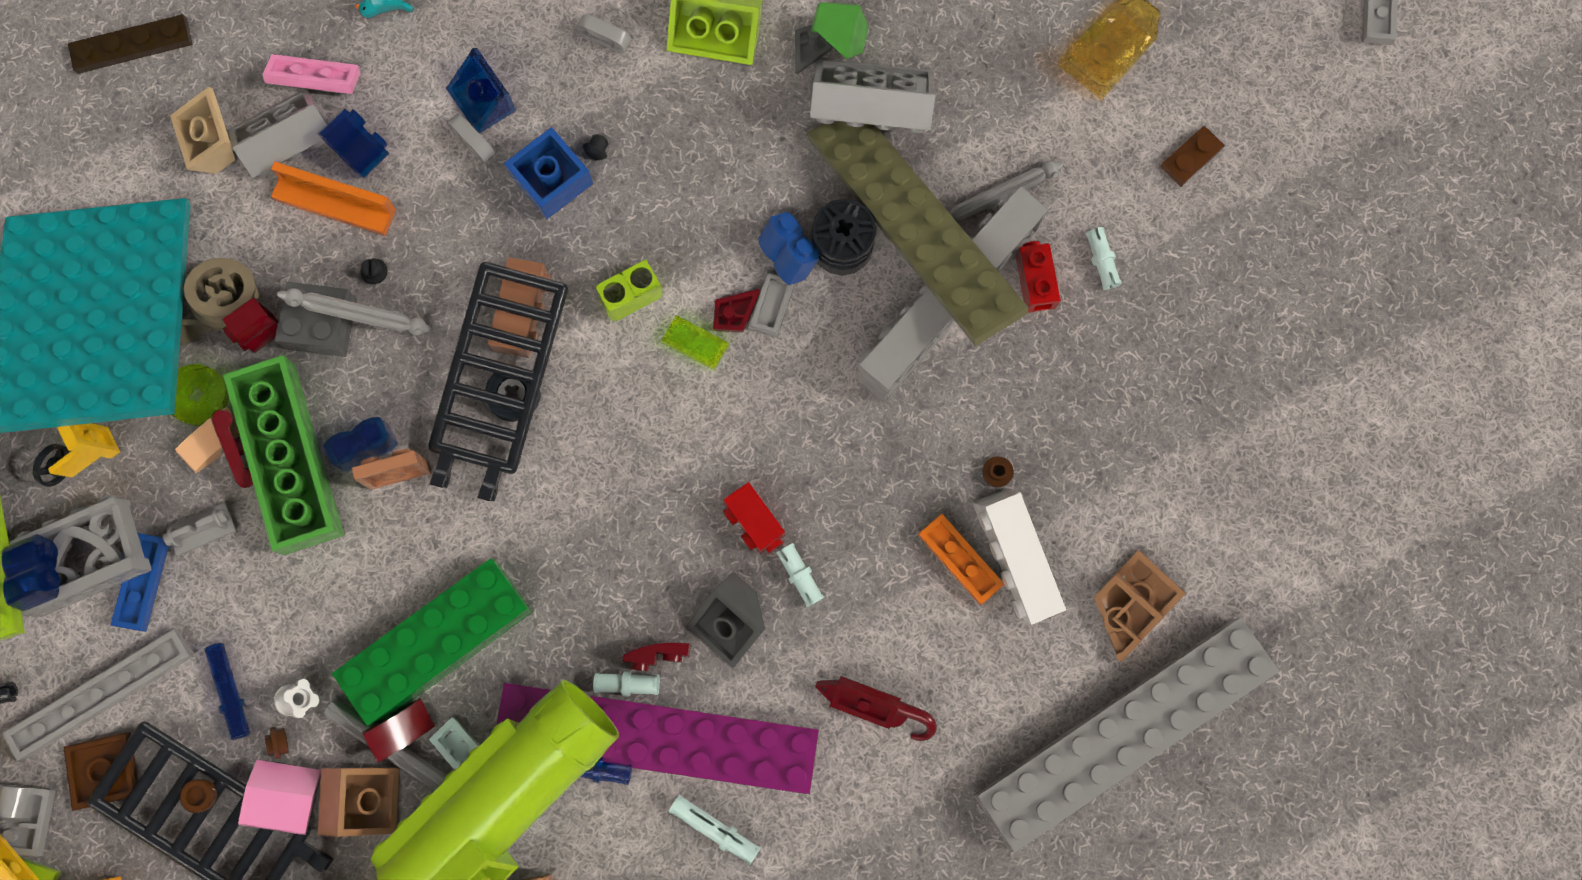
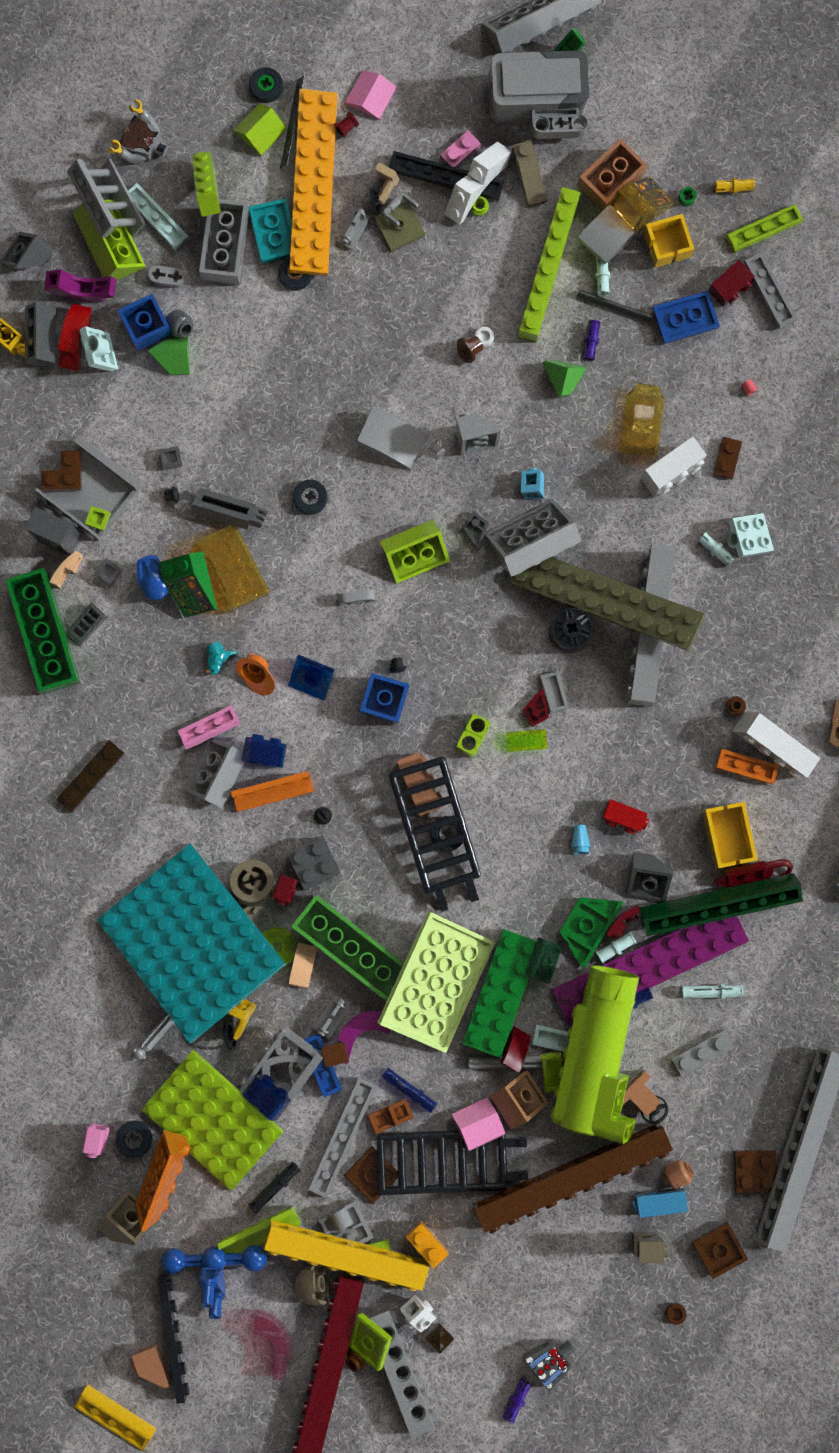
camera: 35 degrees left, 5 degrees up
(157, 576) = (335, 1054): none -> reddish brown slope
(178, 709) = (390, 1116): none -> dark orange slope
(198, 795) = (436, 1151): reddish brown tile -> none
(203, 134) = (179, 801): tan slope -> none
(231, 447) = (321, 962): dark red plate -> none
(249, 570) = (359, 1024): none -> magenta arch
(277, 742) = (455, 1098): reddish brown plate -> none
(295, 699) = (449, 1070): white brick -> none
(354, 311) = (337, 845): light grey wheel -> none
(354, 570) = (436, 982): none -> yellowish green plate
(367, 439) = (390, 909): clear blue brick -> none
(400, 467) = (421, 909): nougat plate -> none
(414, 43) = (255, 674): none -> orange piece
(426, 781) = (551, 1067): none -> lime tile
(471, 138) = (325, 706): light grey beam -> none
(515, 635) = (543, 960): none -> clear green tile
(608, 630) = (587, 926): none -> green wing
(675, 513) = (580, 840): none -> medium azure cone
(788, 248) = (544, 656): blue brick -> none
(800, 575) = (668, 830): light aqua pin -> none
(803, 718) = (721, 904): none -> dark green brick
(842, 27) = (489, 511): bright green slope -> none
(876, 633) = (729, 835): none -> yellow piece
(917, 33) = (533, 491): none -> medium azure brick
(994, 195) = (638, 545): light grey wheel -> none
(1037, 276) = (688, 583): red brick -> none
(1113, 118) = (674, 467): none -> white brick
(1158, 266) = (749, 535): none -> light aqua plate
(1277, 87) = (749, 387): none -> coral piece

